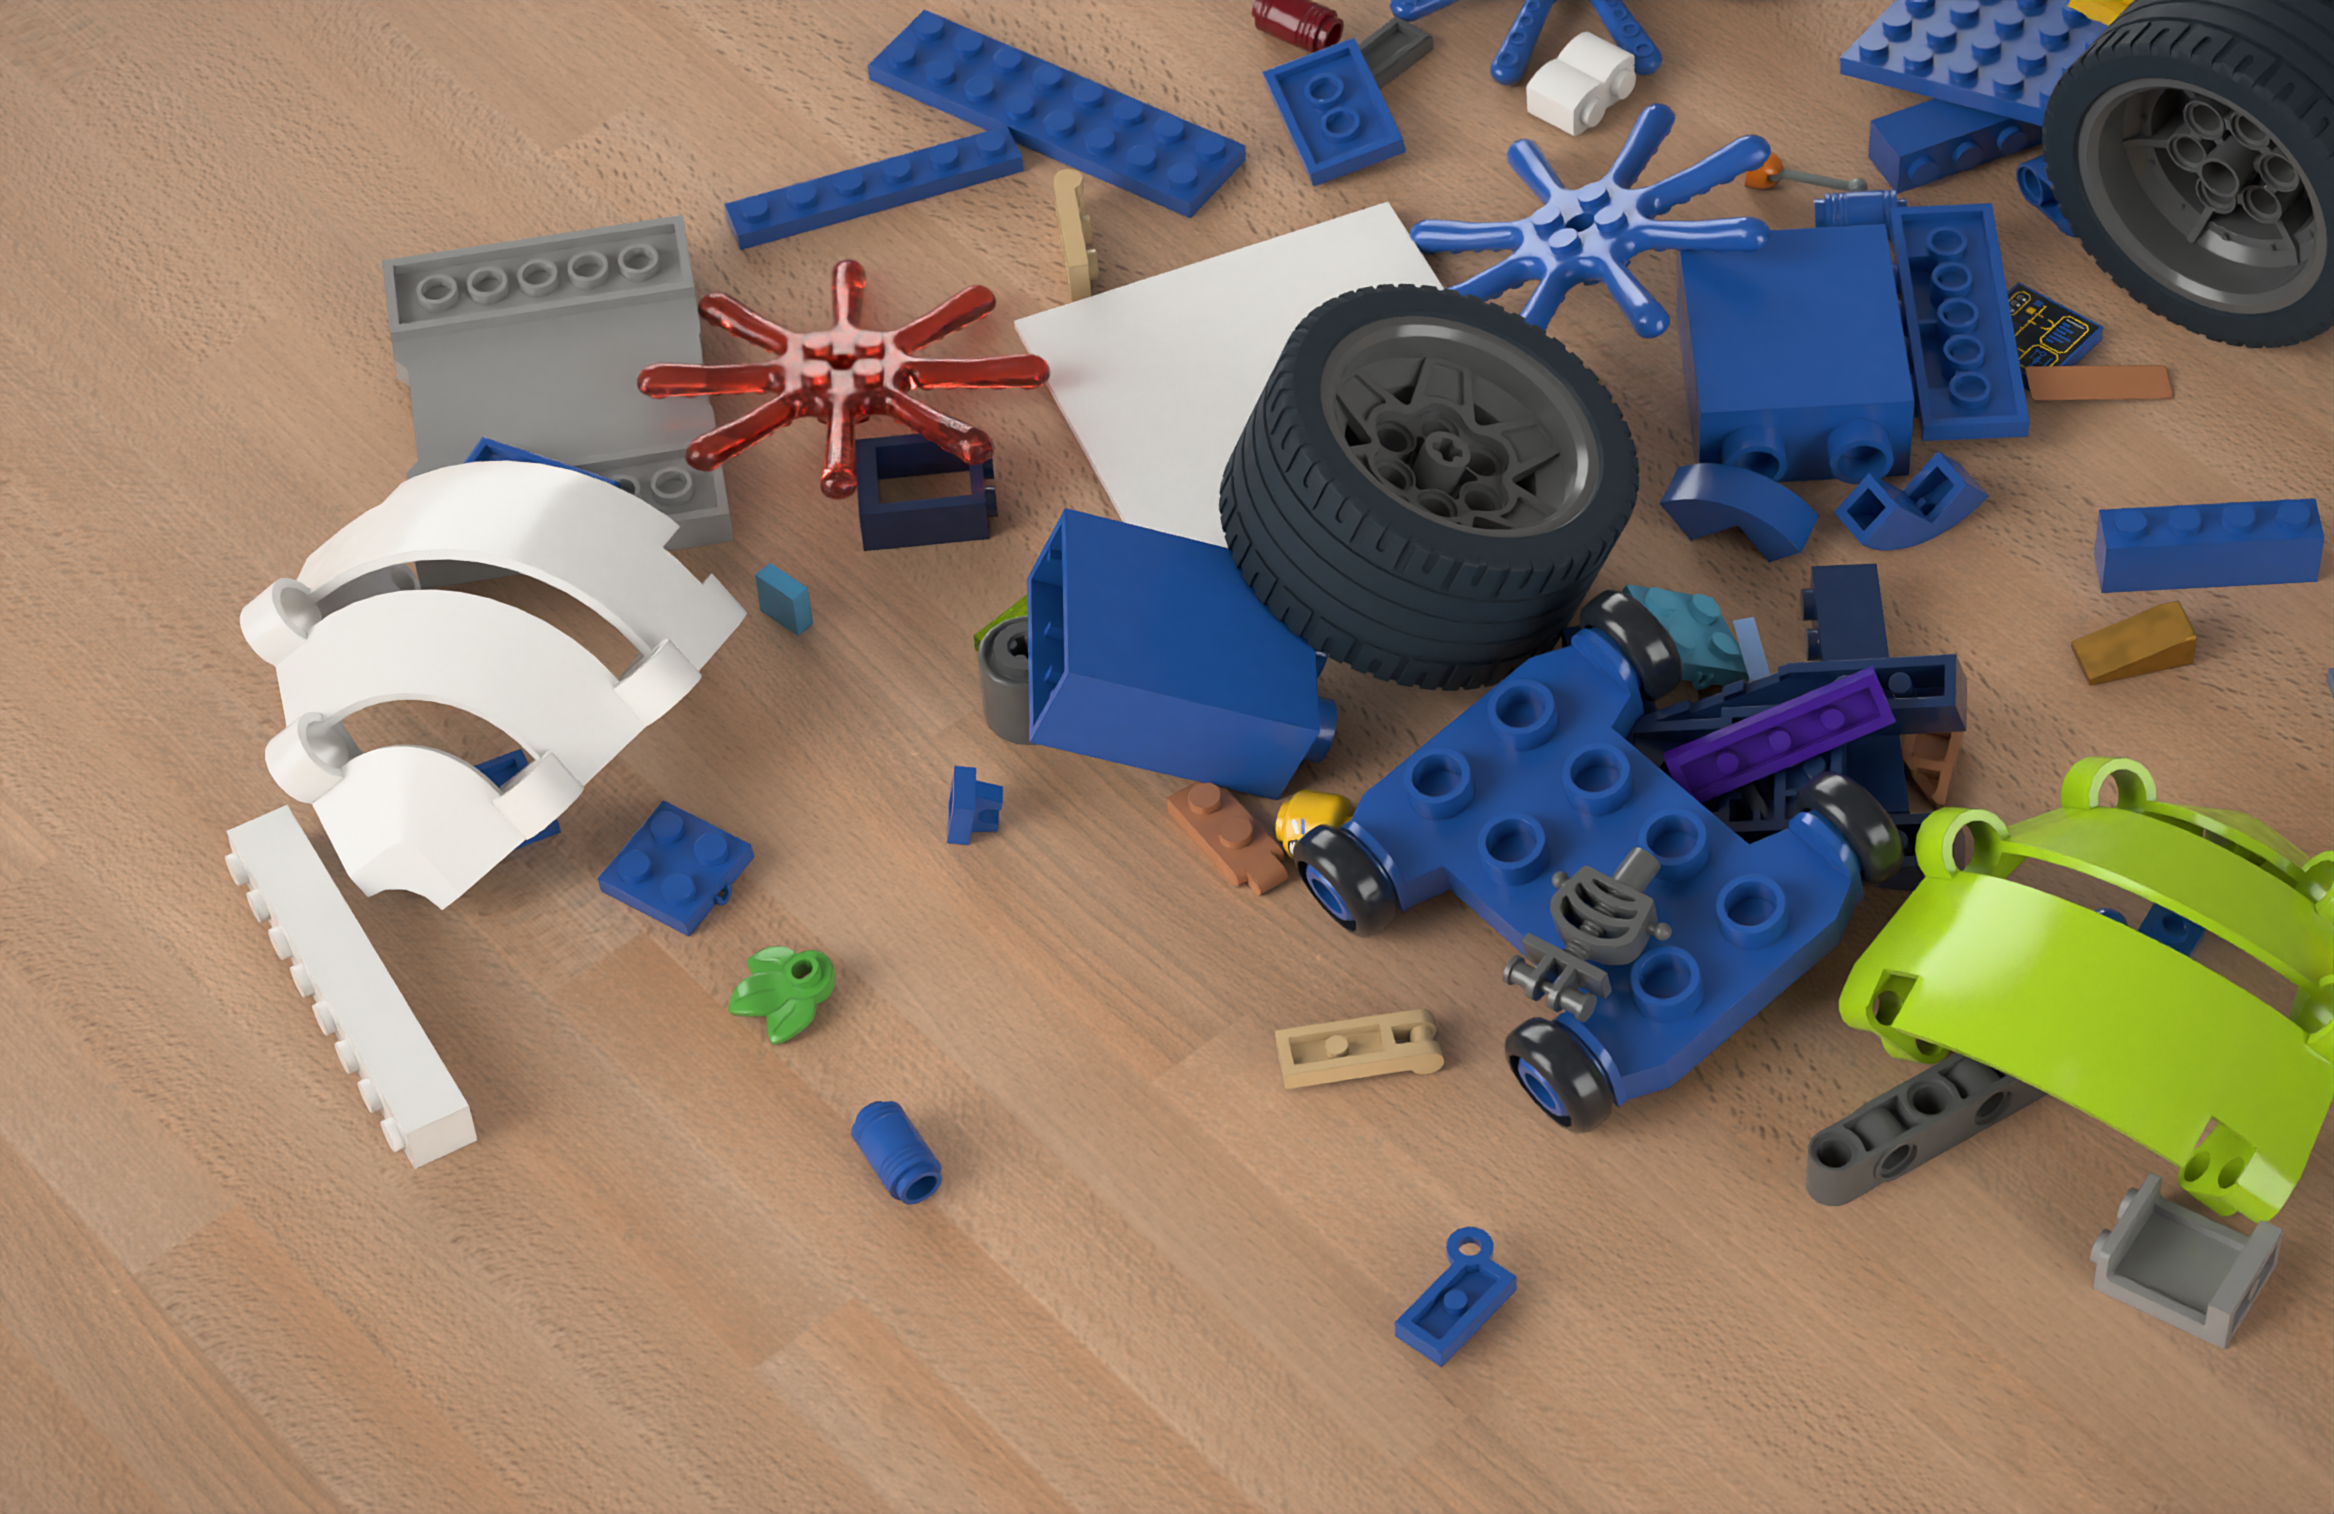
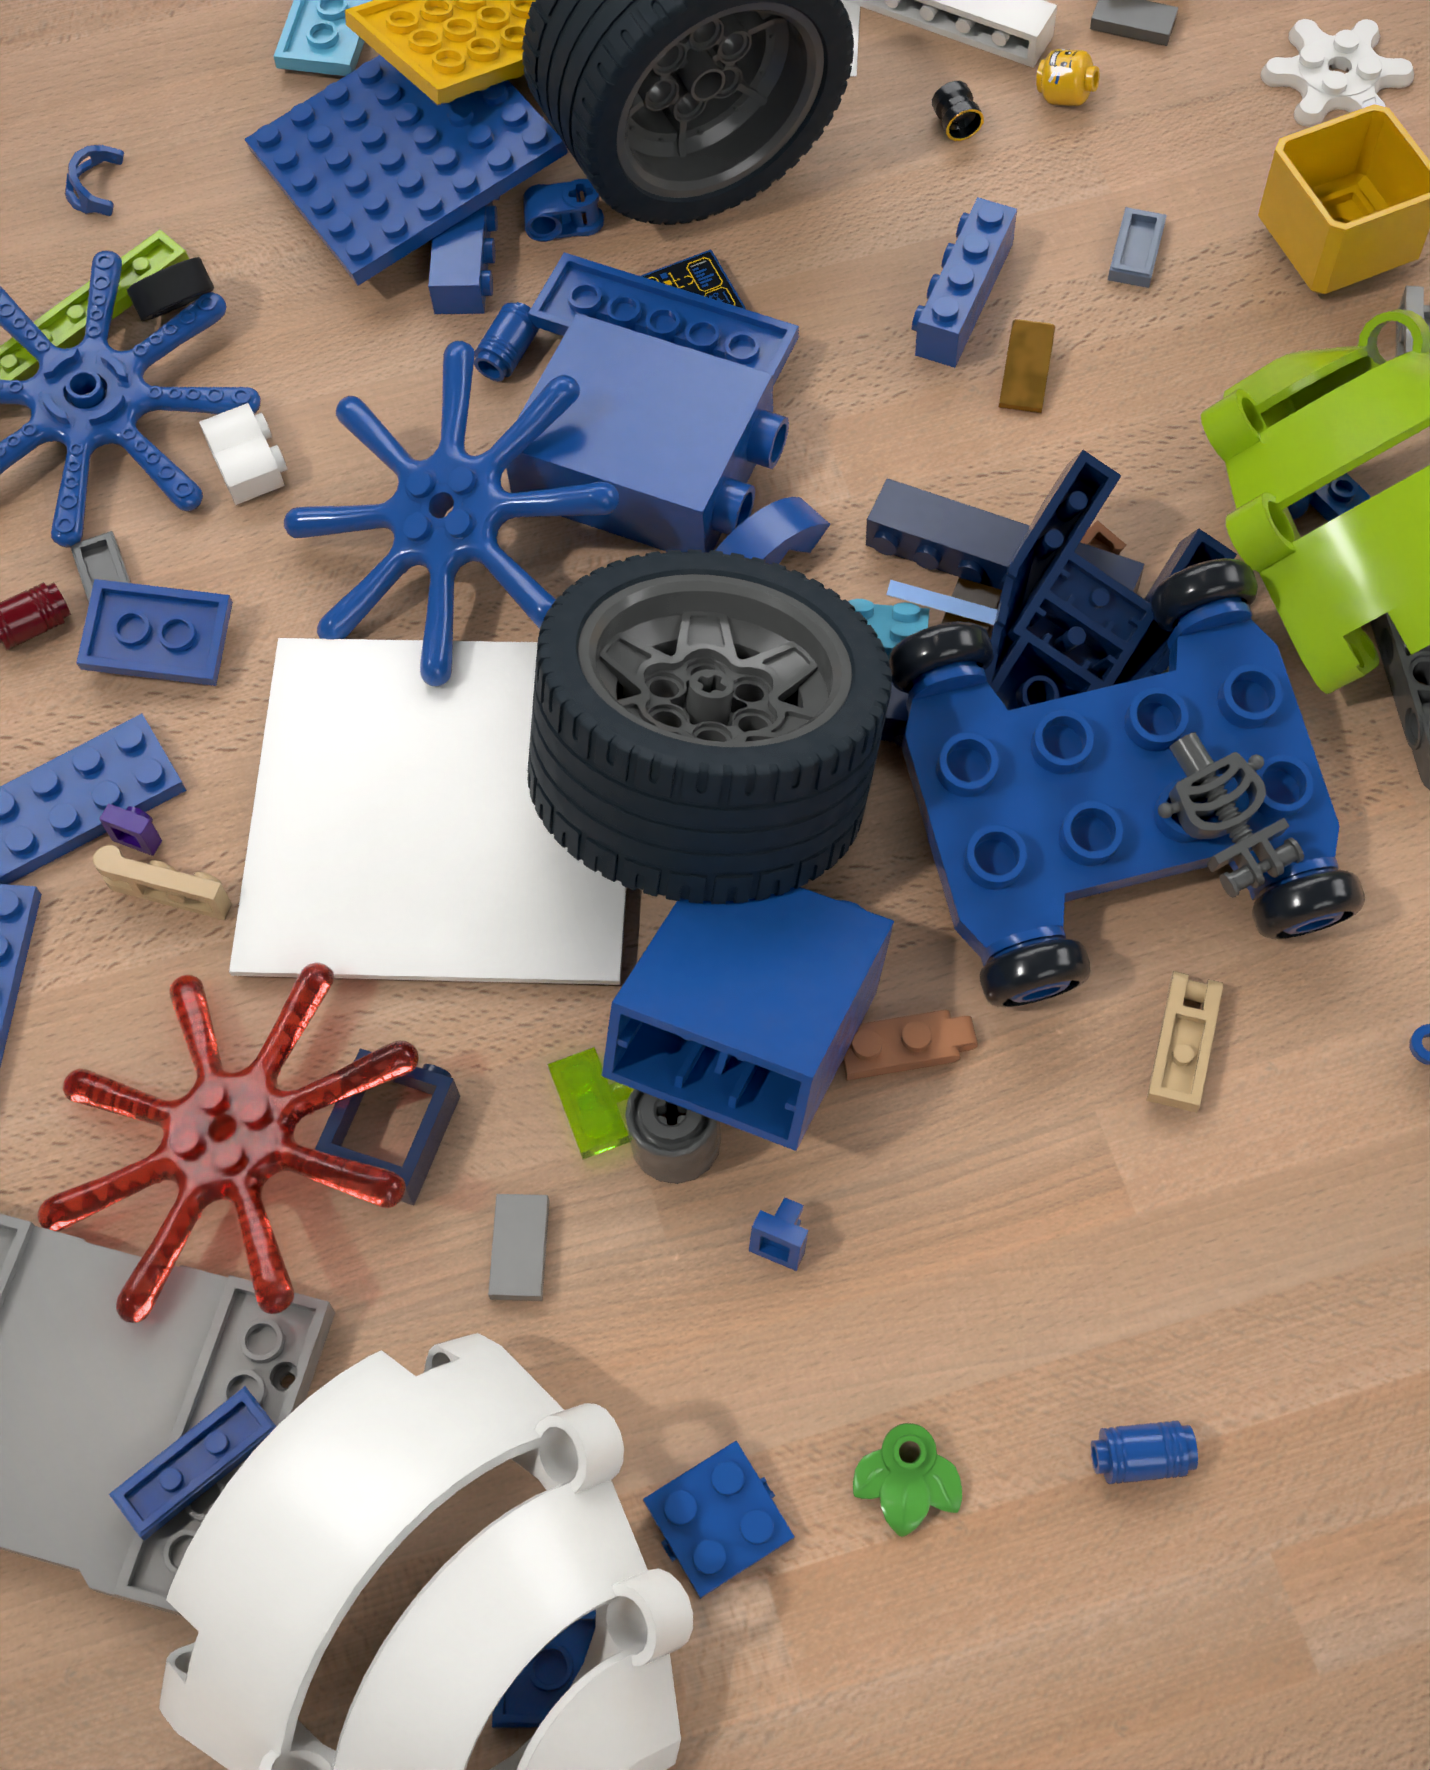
camera: 65 degrees left, 15 degrees up
(784, 599) = (451, 1295): dark azure tile -> none
(860, 633) = (519, 1247): none -> light grey tile
(1119, 190) = (131, 828): none -> dark purple plate
(1307, 811) = (942, 971): yellow head -> none
(1774, 171) = (414, 378): hinge -> none
(1781, 736) = (1081, 601): dark purple plate -> none
(1928, 506) = (824, 436): blue brick -> none
(2099, 382) = (761, 274): nougat sticker -> none

